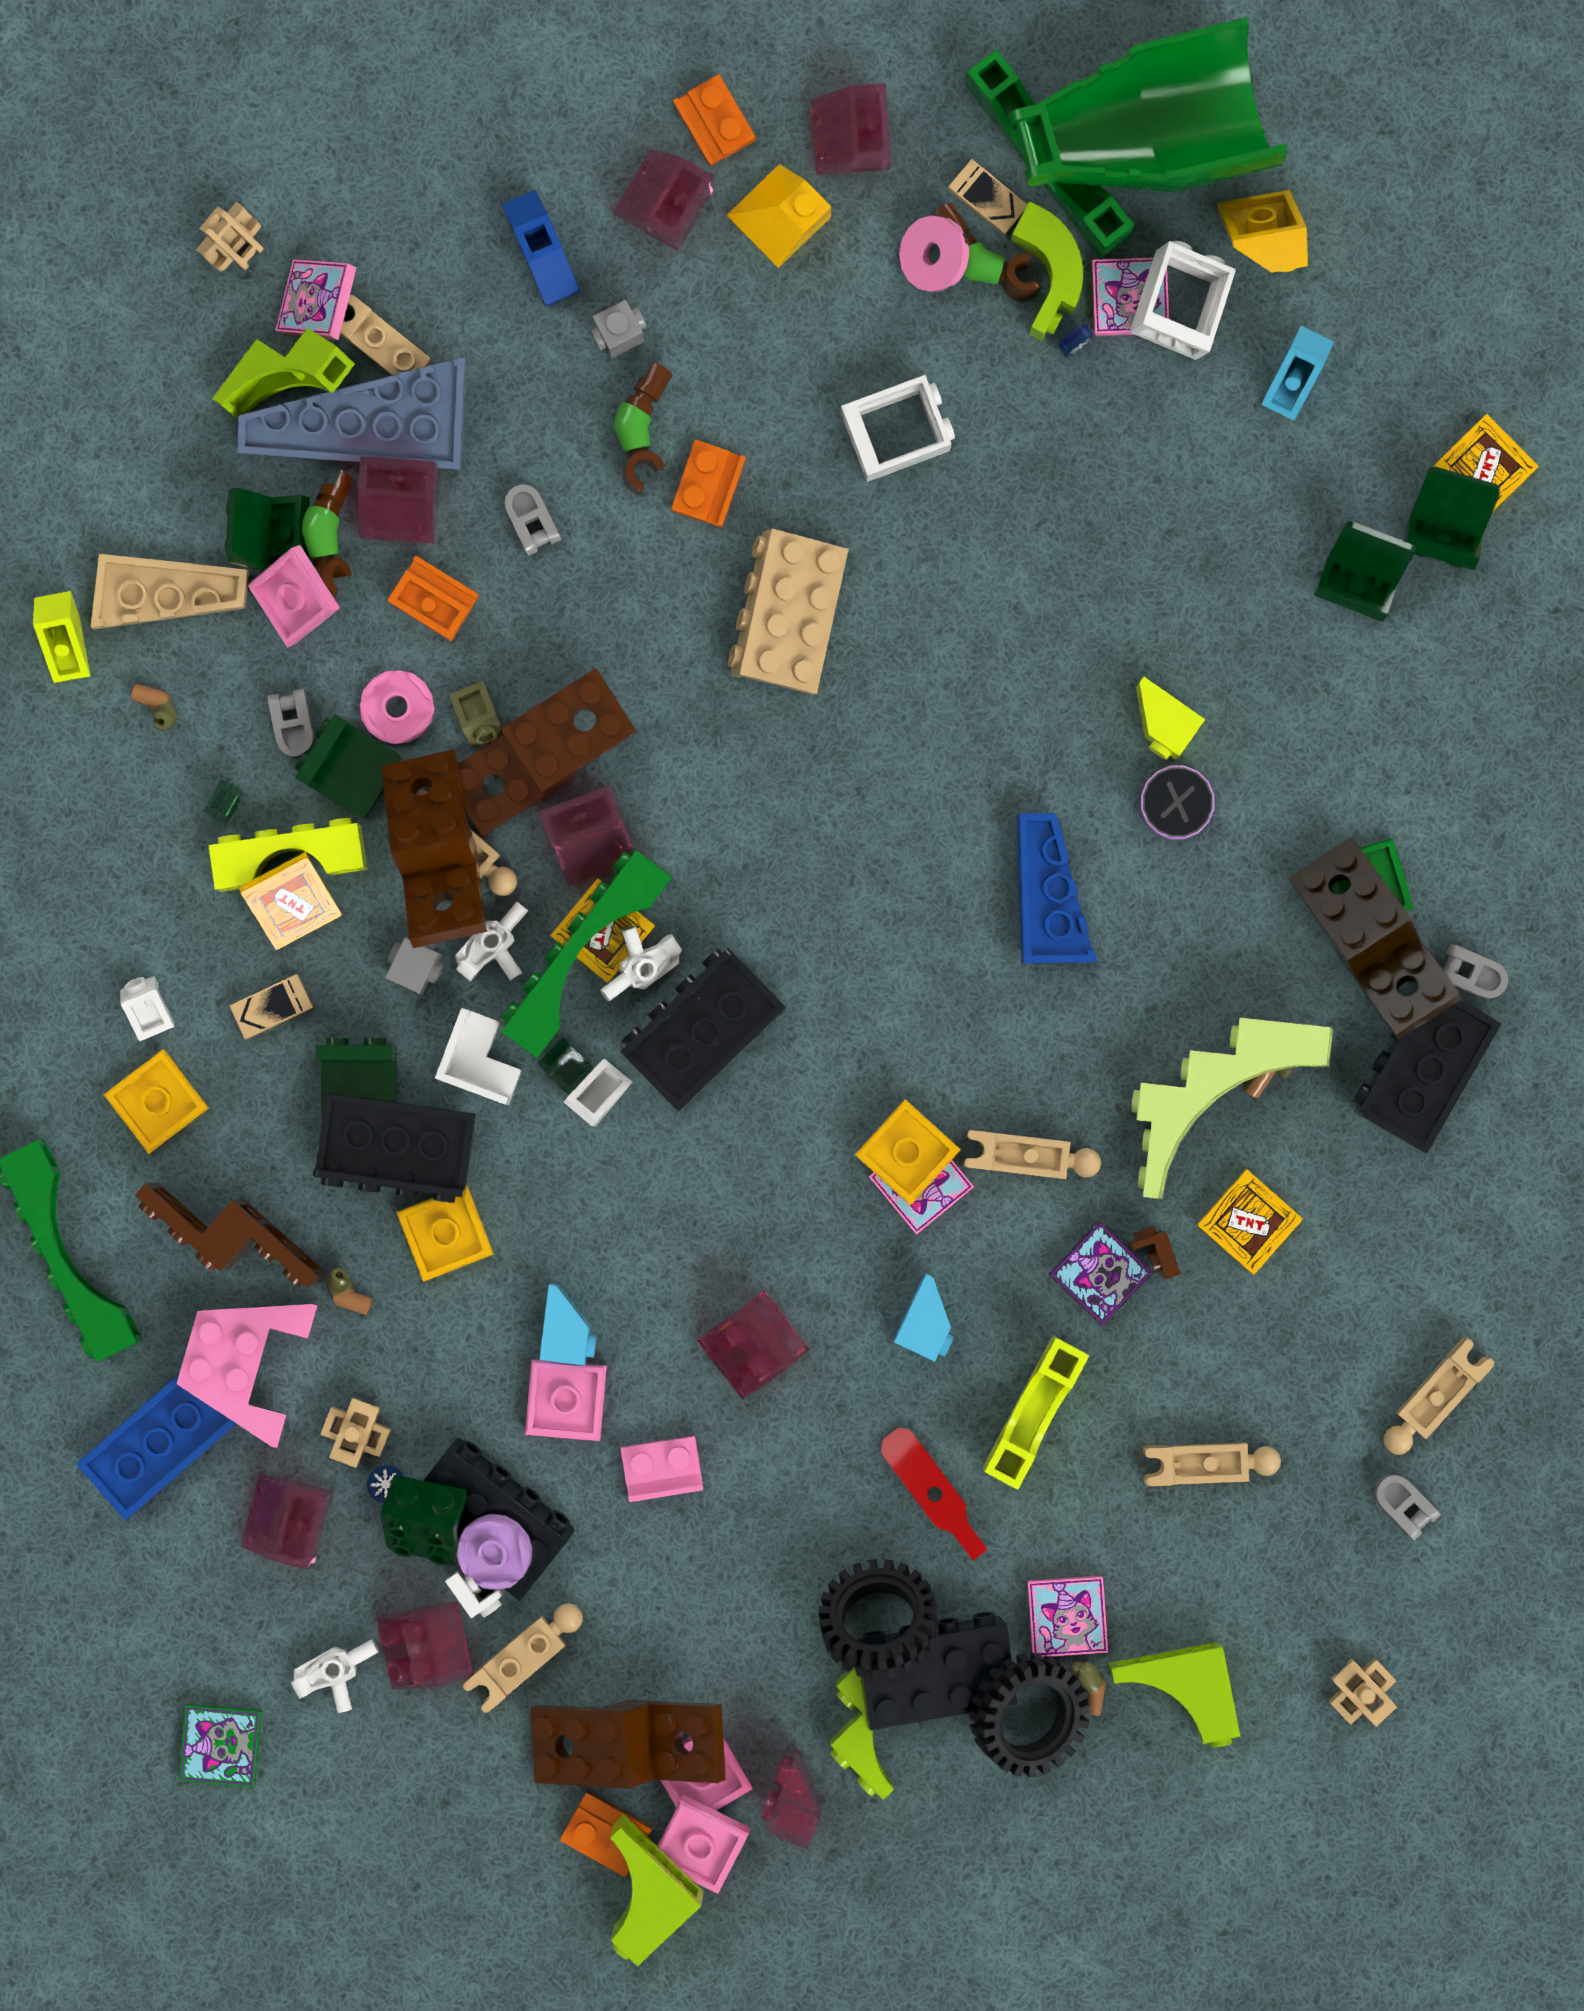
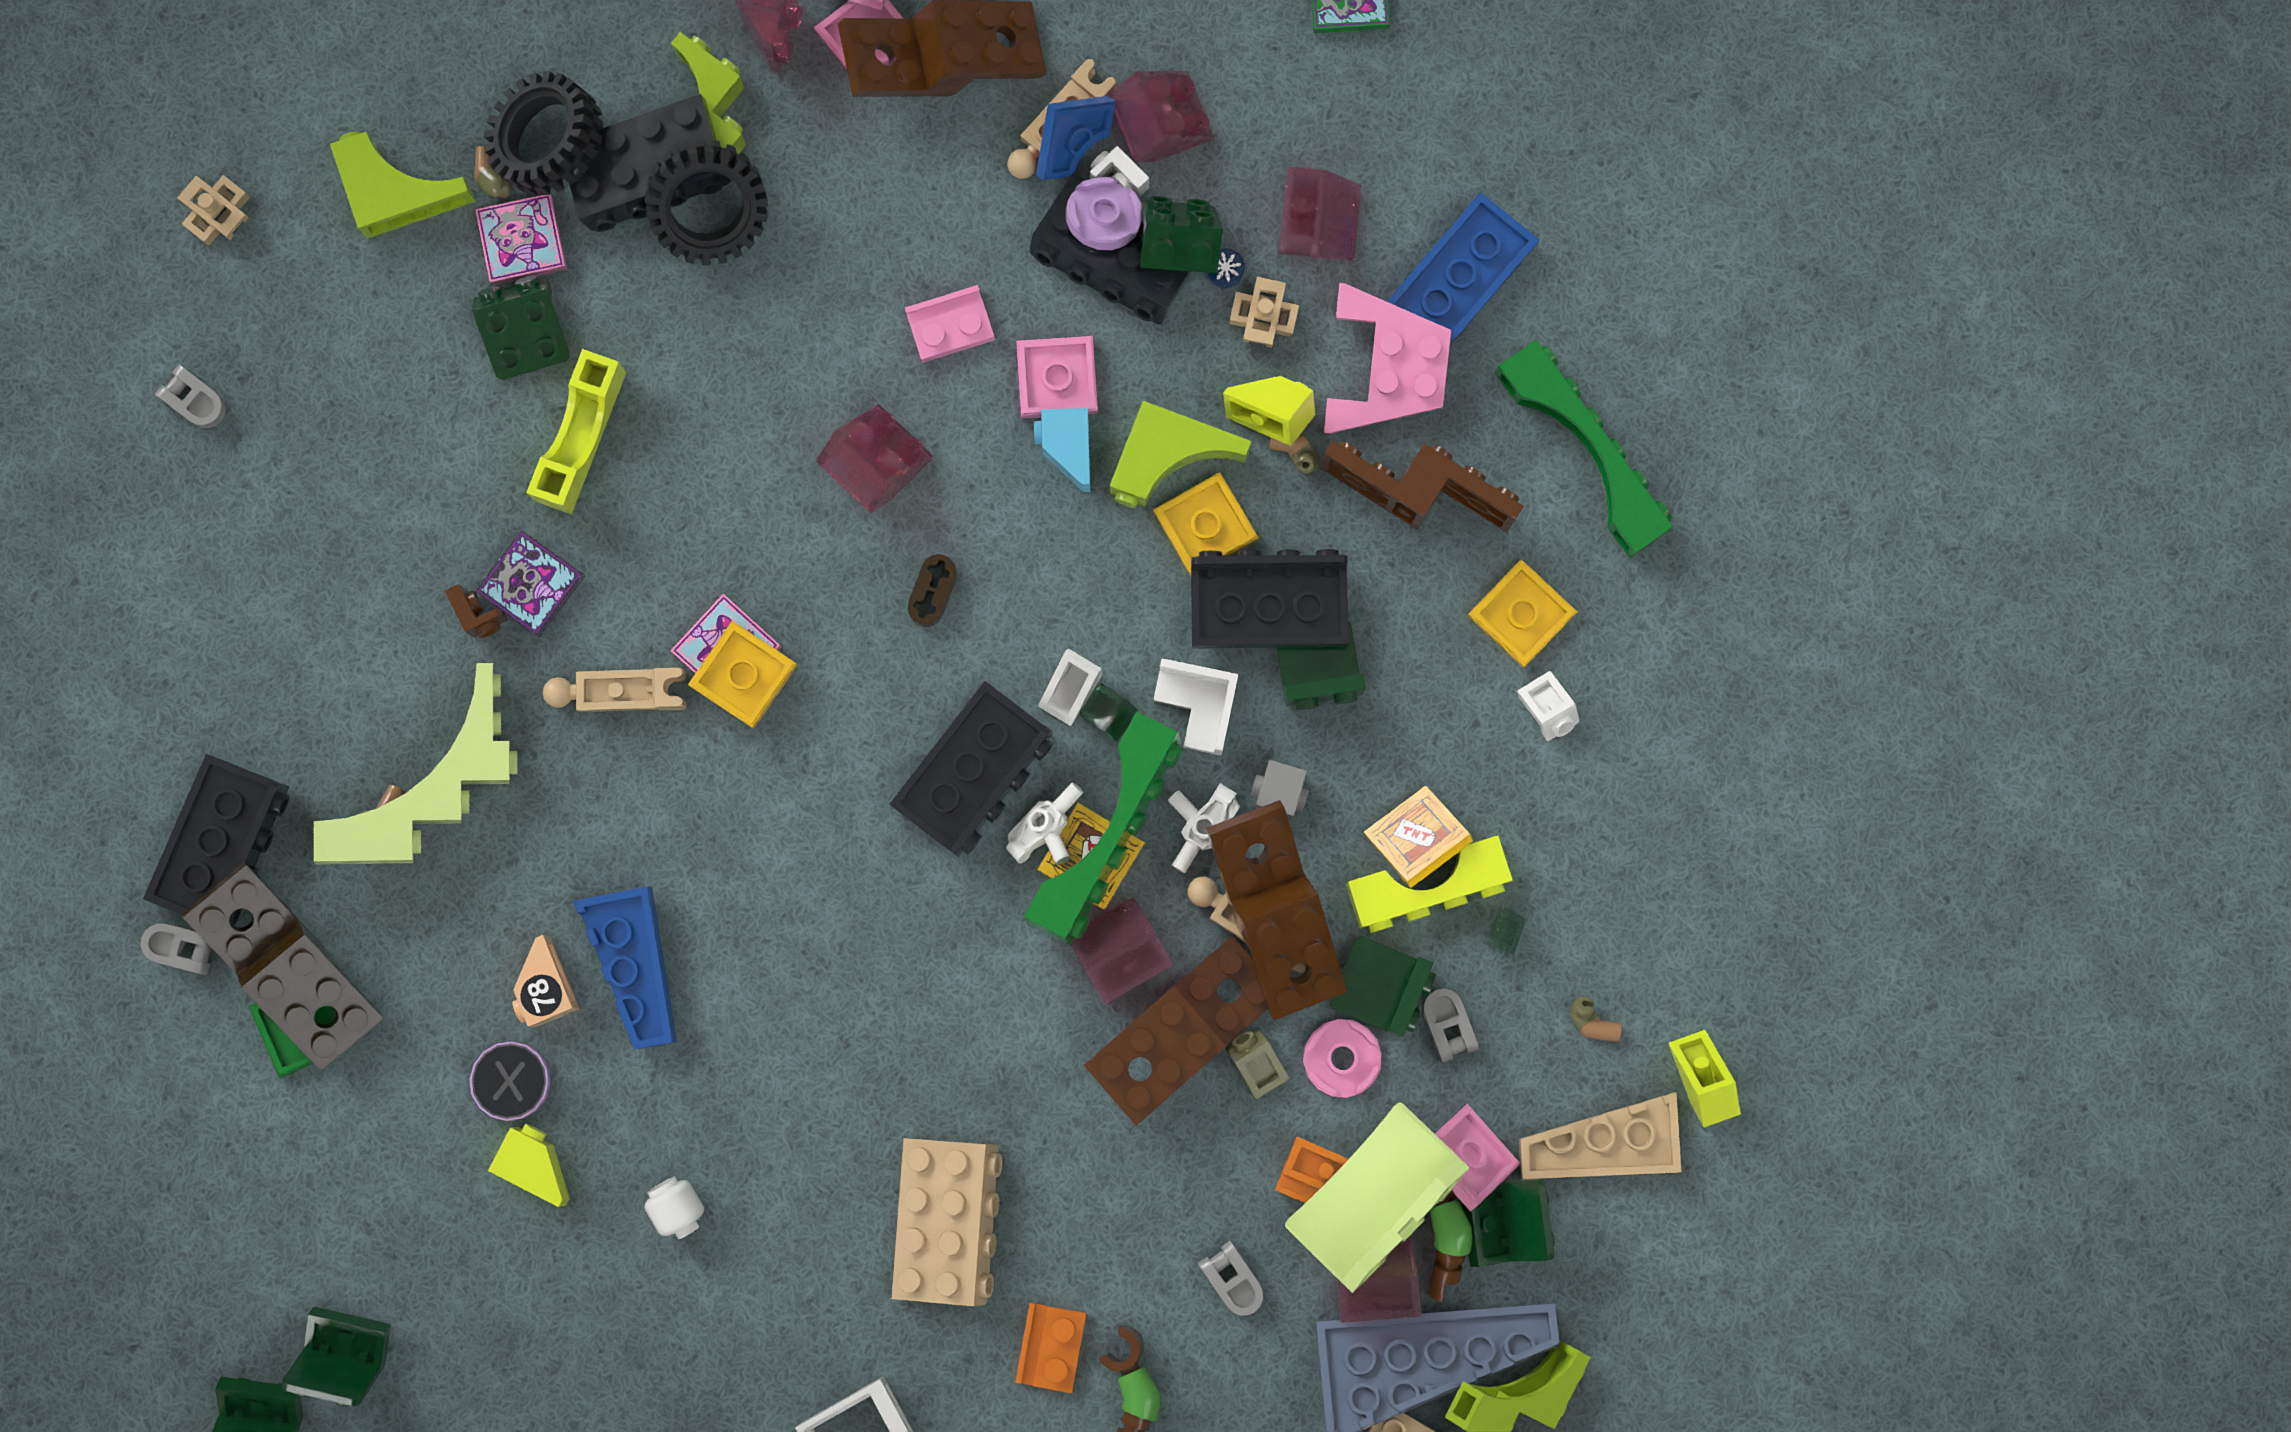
camera: 170 degrees right, 5 degrees down
(271, 1006) = (1420, 727): tan tile -> none
(332, 1670) = (1249, 79): white piece -> none
(362, 1335) = (1271, 407): none -> neon yellow slope
(383, 569) = (1377, 1197): none -> yellowish green panel
(473, 1317) = (1161, 445): none -> lime arch
(513, 1640) = (1070, 131): none -> blue tile
(724, 1213) = (940, 594): none -> dark brown beam
(919, 1475) = (686, 355): red piece -> none
(925, 1323) = (702, 504): medium azure slope -> none
(1037, 661) = (674, 1207): none -> white head
(1078, 1527) = (520, 327): none -> dark green bracket
(1134, 883) = (543, 986): none -> light nougat slope
(1209, 1463) = (397, 408): tan plate -> none
(1249, 1221) = (383, 658): tile -> none
(1436, 1397) = (169, 511): tan plate -> none

